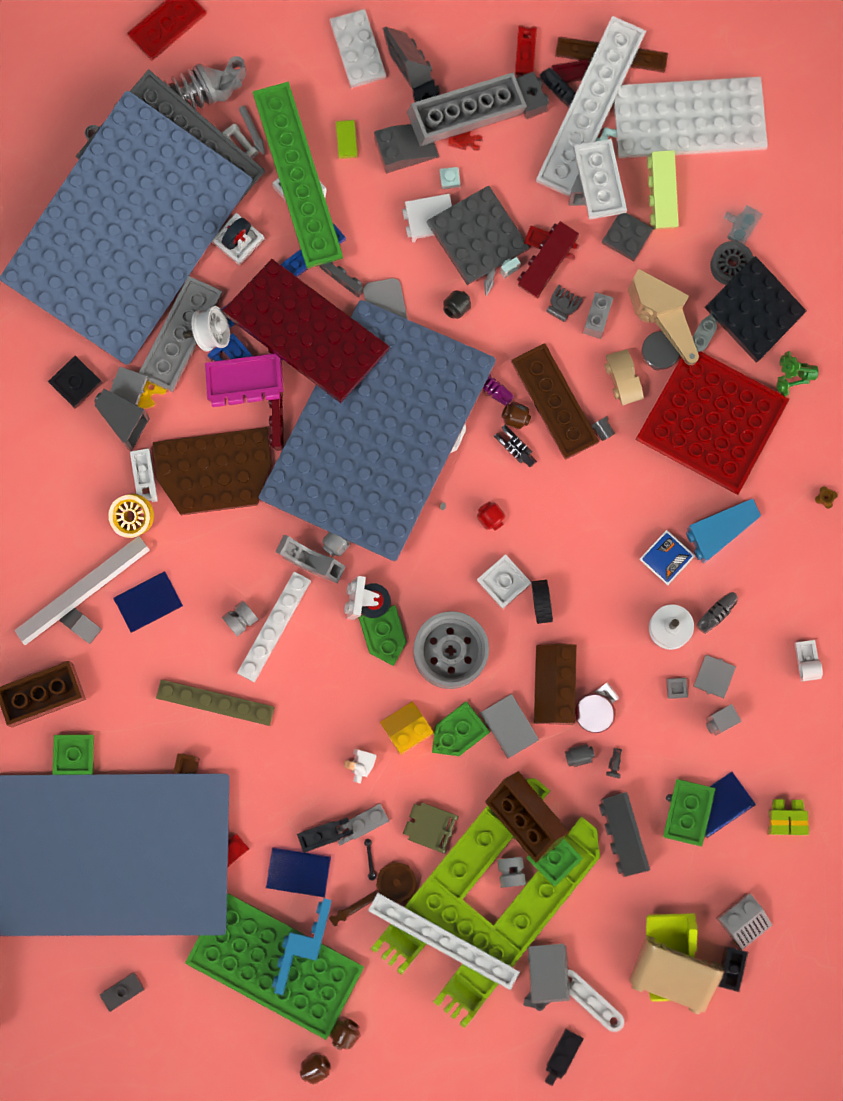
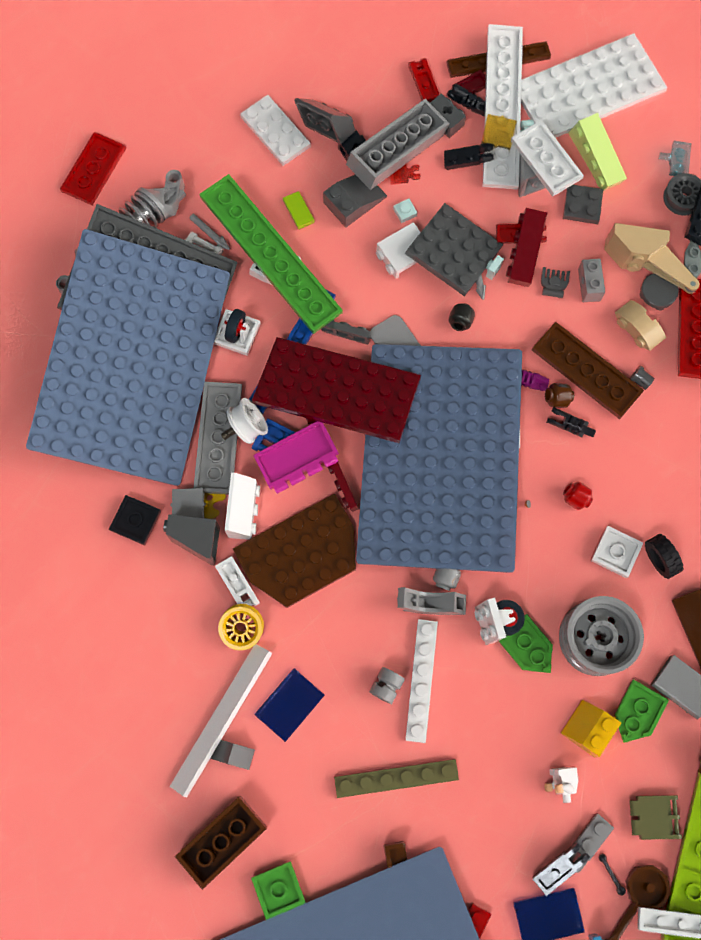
camera: 25 degrees left, 5 degrees down
(174, 407) = (242, 507): none -> white slope
(532, 145) = (467, 156): none -> black hinge
(573, 131) = (498, 131): none -> clear yellow piece

